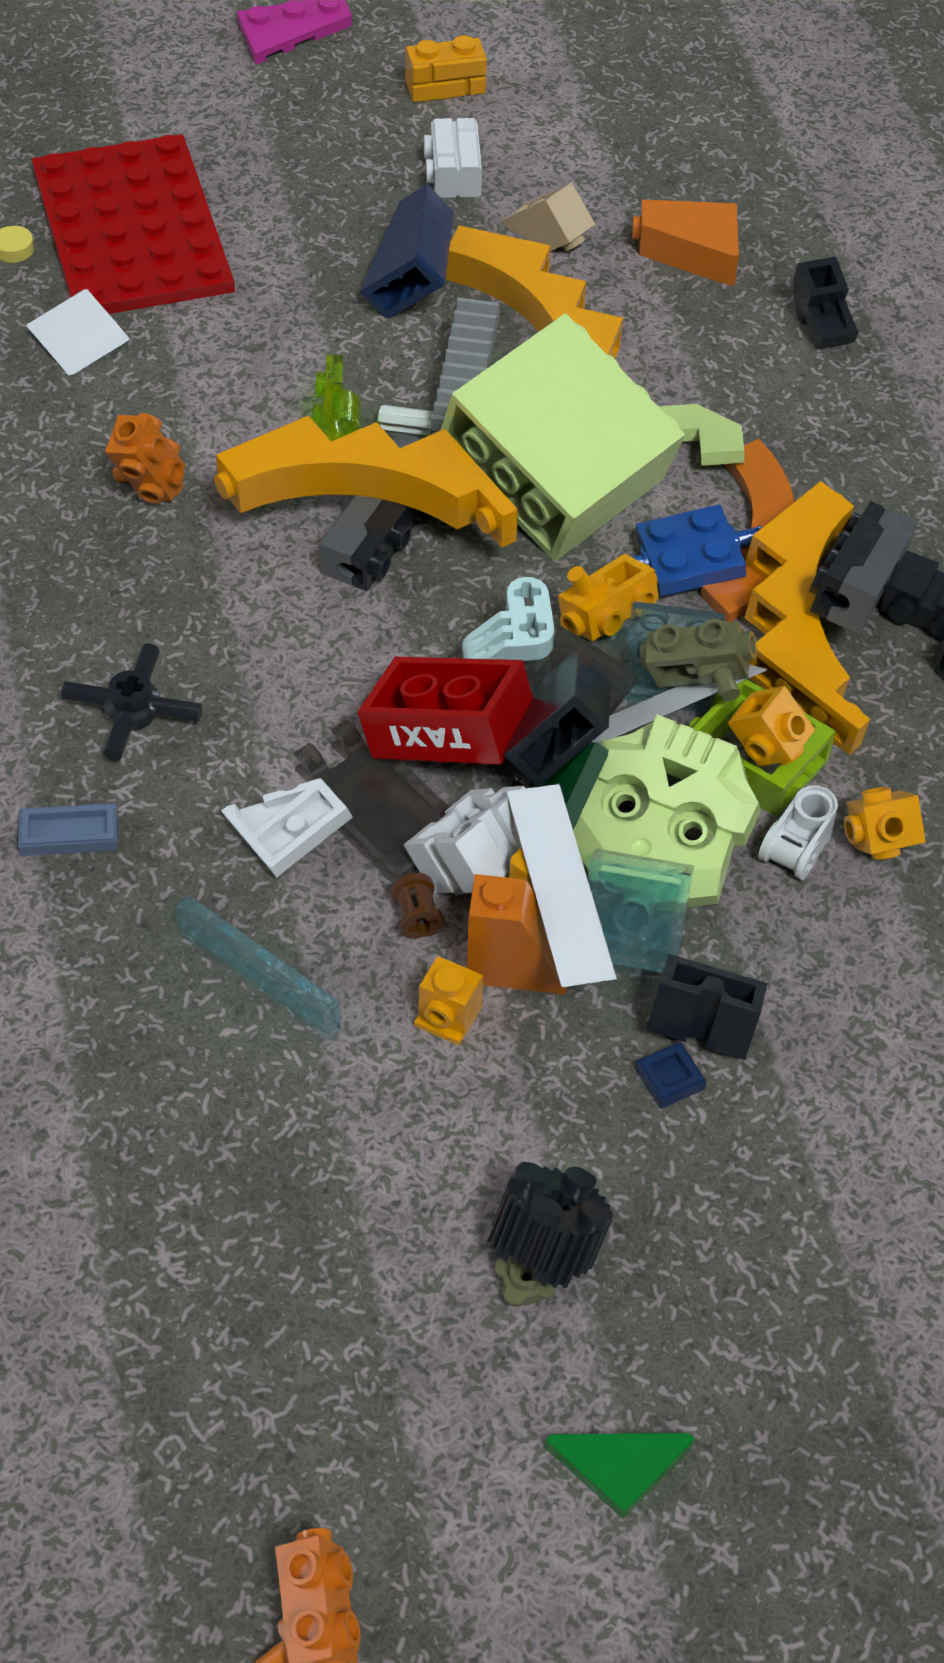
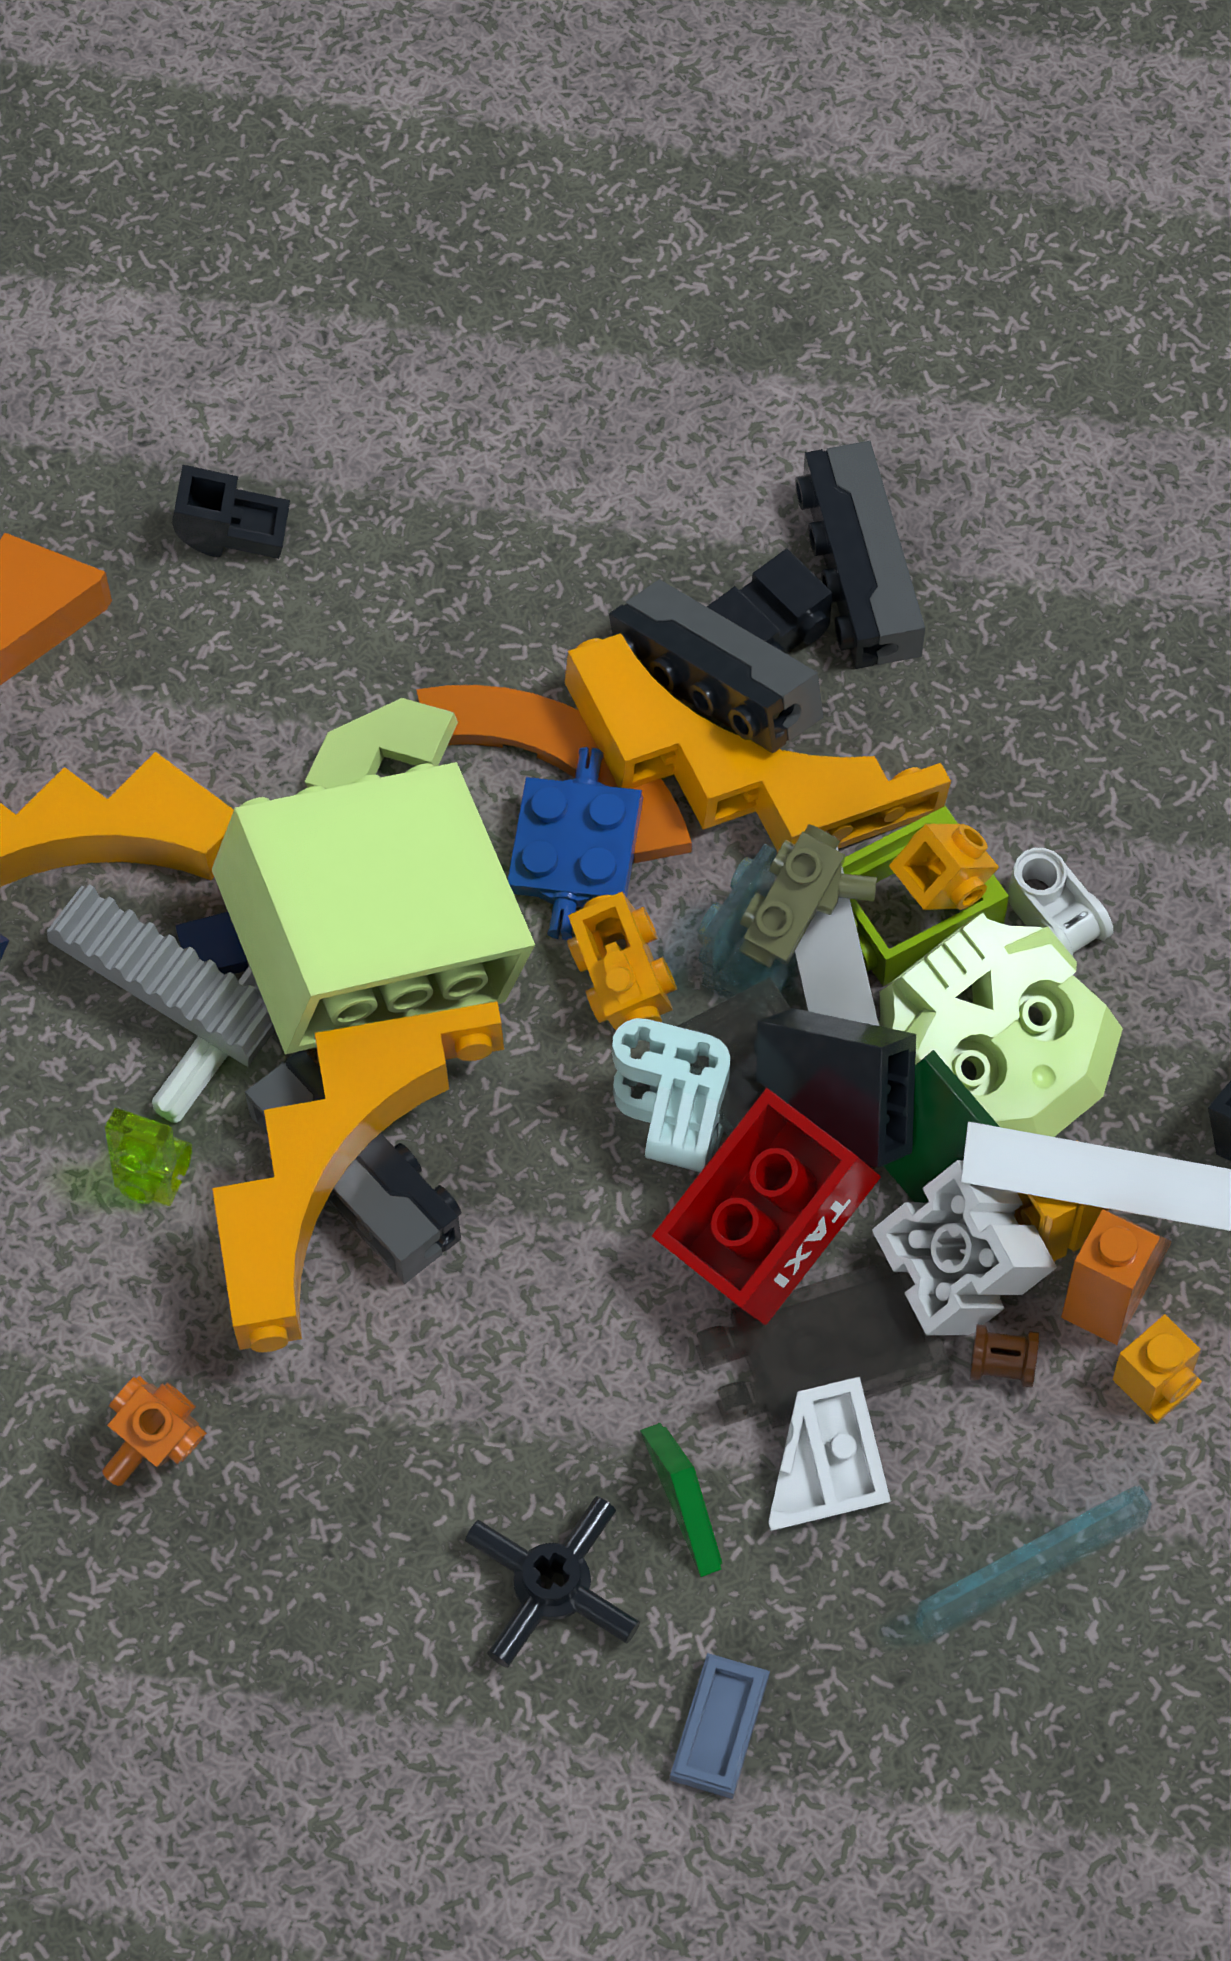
camera: 65 degrees left, 10 degrees up
(224, 752) = (684, 1496): none -> green tile
(640, 906) = (1131, 1100): clear light blue brick -> none
(884, 822) = (1081, 814): light orange brick -> none

